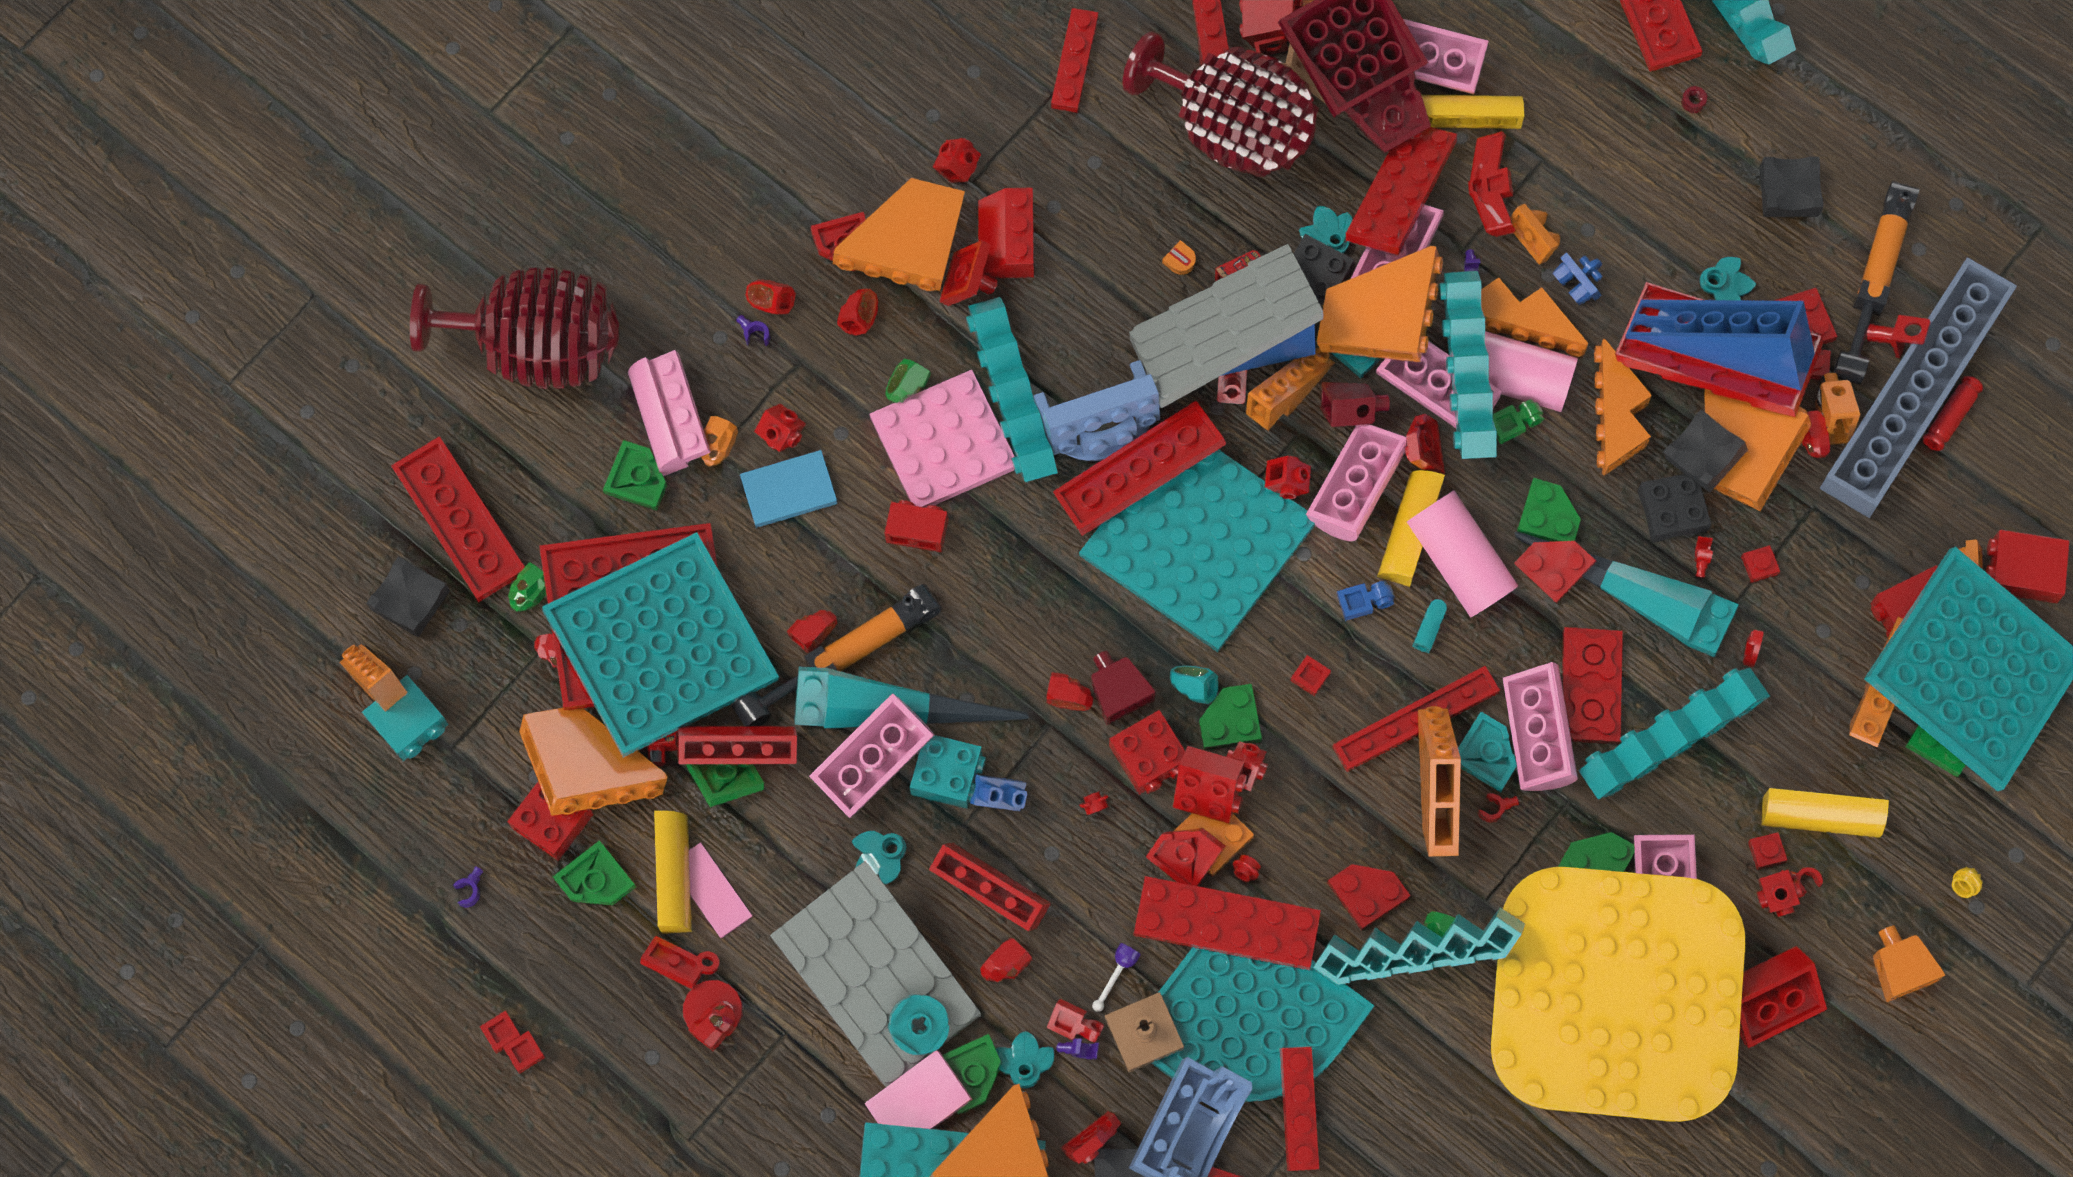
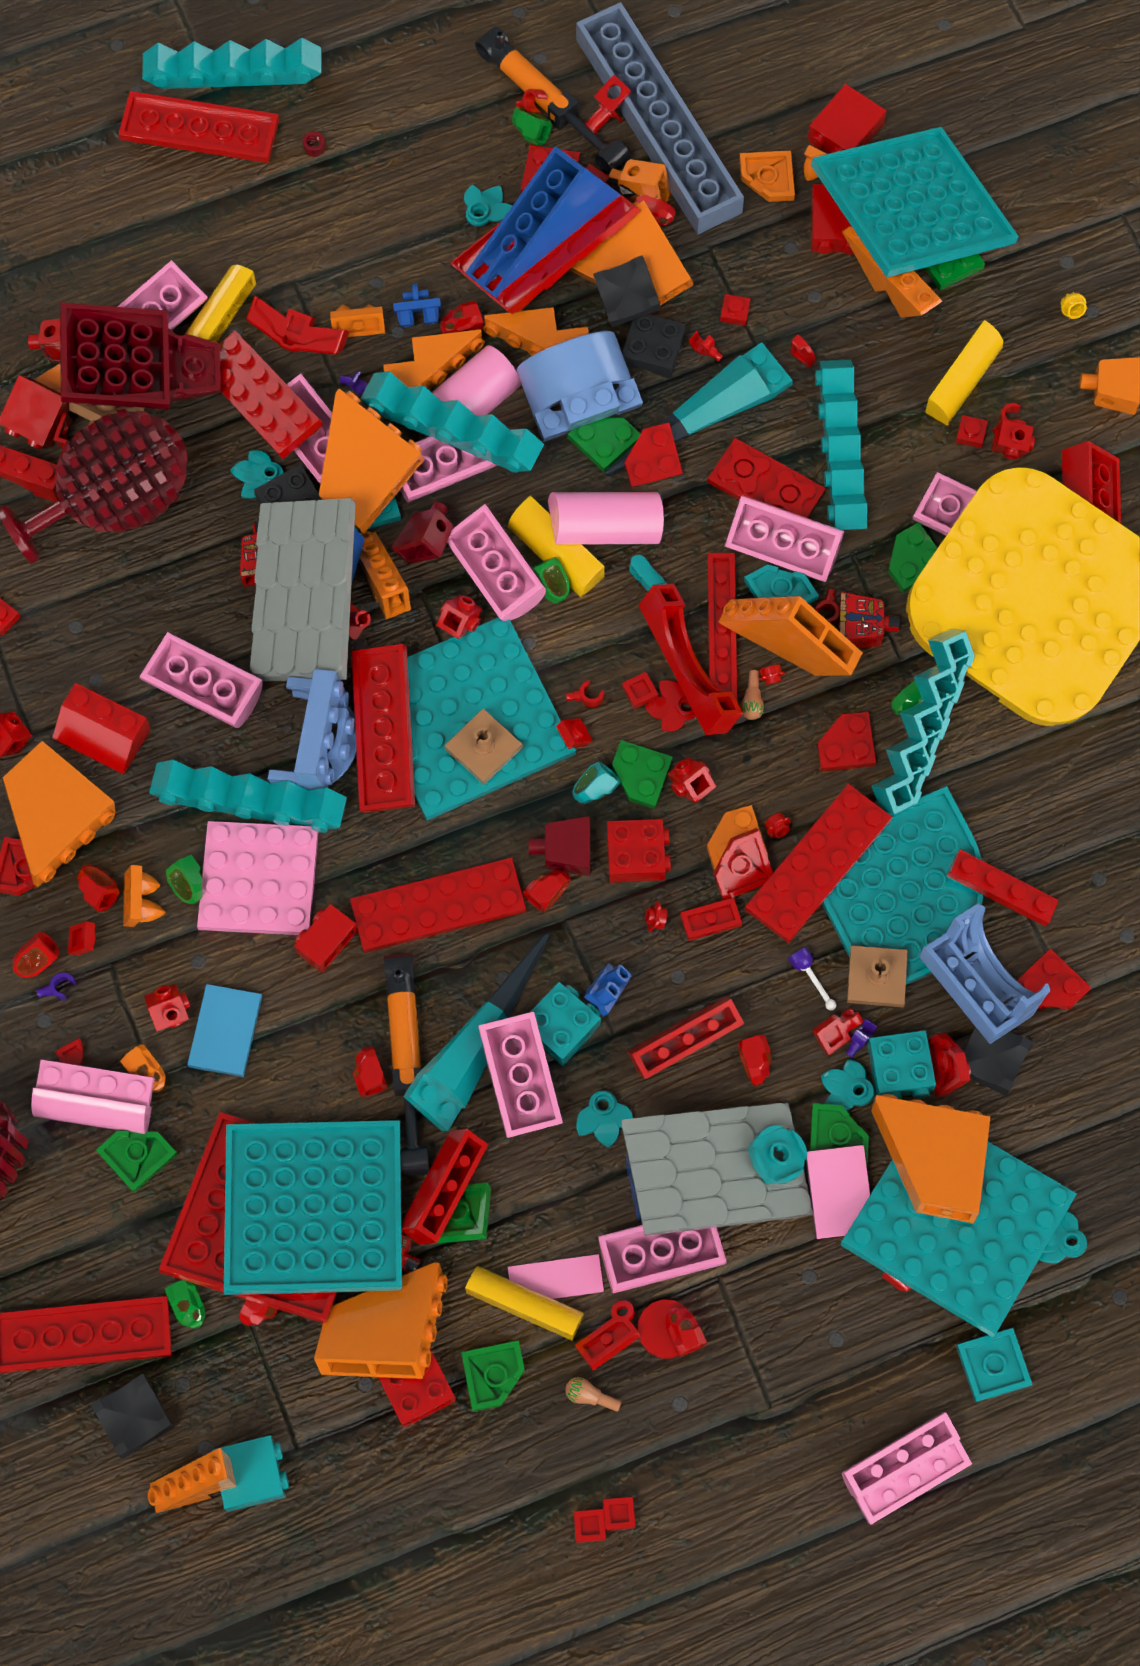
camera: 65 degrees left, 0 degrees up
(471, 881) = (434, 1486): dark purple piece -> none
(617, 964) = (583, 1392): none -> nougat piece
(700, 376) = (71, 1053): none -> red tile
(768, 968) = (641, 1260): none -> bright pink brick
(806, 325) = (81, 938): none -> red plate
(860, 359) = (135, 907): none -> orange tile
(967, 275) = (120, 778): red tile -> none
(1003, 607) = (438, 905): none -> red plate
(1070, 1099) = (902, 1065): none -> teal brick
(1096, 293) = (203, 680): none -> bright pink brick
(1120, 853) = (710, 919): none -> red plate
(1172, 564) = (483, 746): none -> medium nougat tile
(1180, 259) = (210, 602): orange tile -> none
(1209, 785) = (695, 814): red brick -> none
(1233, 638) = (574, 733): none -> red plate
(1277, 625) = (579, 695): none -> red piece
(1310, 711) = (669, 707): none -> red plate
(1328, 739) = (664, 613): none -> red arch
(1356, 784) = (752, 703): none -> nougat piece
(1357, 601) = (597, 620): blue plate -> none
(1373, 538) = (553, 579): none -> rock
(1396, 787) = (771, 674): none -> red plate
(1424, 444) = (498, 500): red plate -> none
(1499, 844) = (864, 620): none -> torso
(1511, 424) = (513, 415): green plate -> none
(1584, 453) = (580, 379): none -> medium blue piece
(1592, 324) = (461, 319): none -> red rock
(1791, 187) = (435, 115): black brick -> none
(1837, 278) = (531, 126): none -> green rock
(1860, 260) = (528, 100): none -> red piece
(1926, 521) = (769, 174): none -> orange plate
(1953, 413) = (694, 105): red axle -> none

